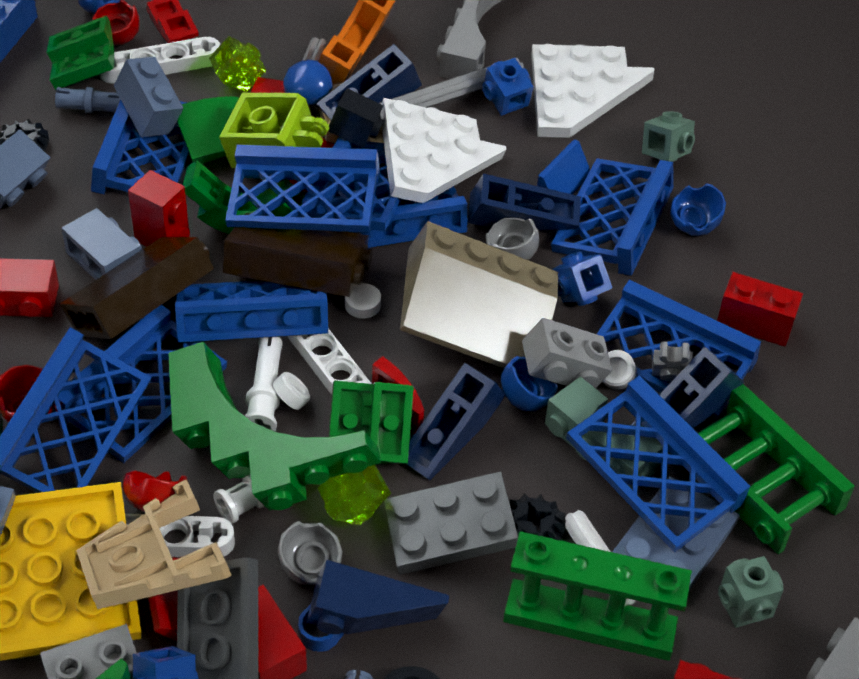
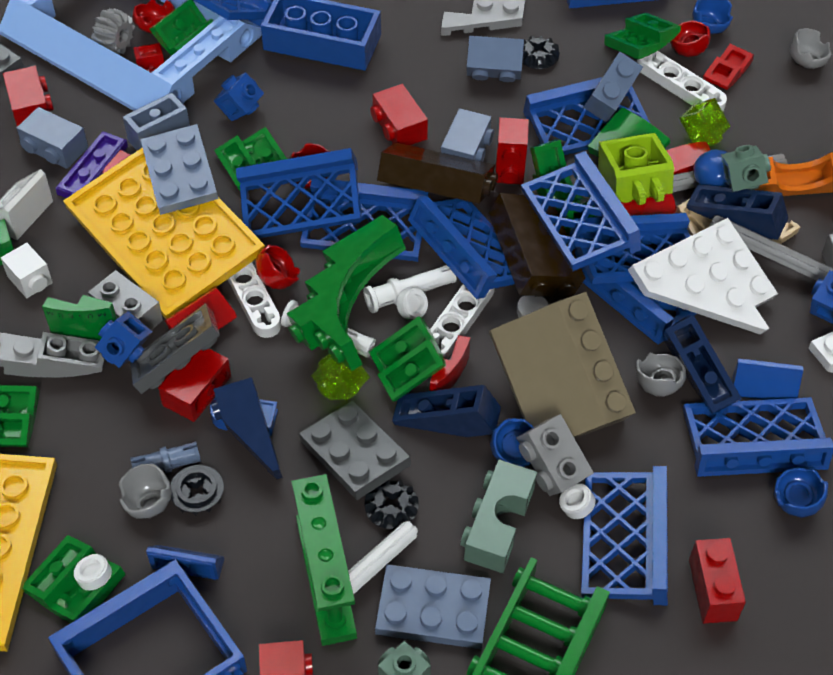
camera: 65 degrees right, 5 degrees up
(86, 99) = (597, 58): sand blue pin -> none
(136, 562) = (199, 273): tan wing -> none
(305, 550) = (274, 374): light grey hair -> none
(342, 54) = (745, 168): none -> sand green brick
(356, 118) = (689, 210): black brick -> none
(582, 278) = (641, 442): blue brick -> none
(670, 361) = (594, 531): light grey plate -> none
(687, 449) = (502, 573): blue fence -> none
(701, 388) = (571, 559): dark blue slope -> none

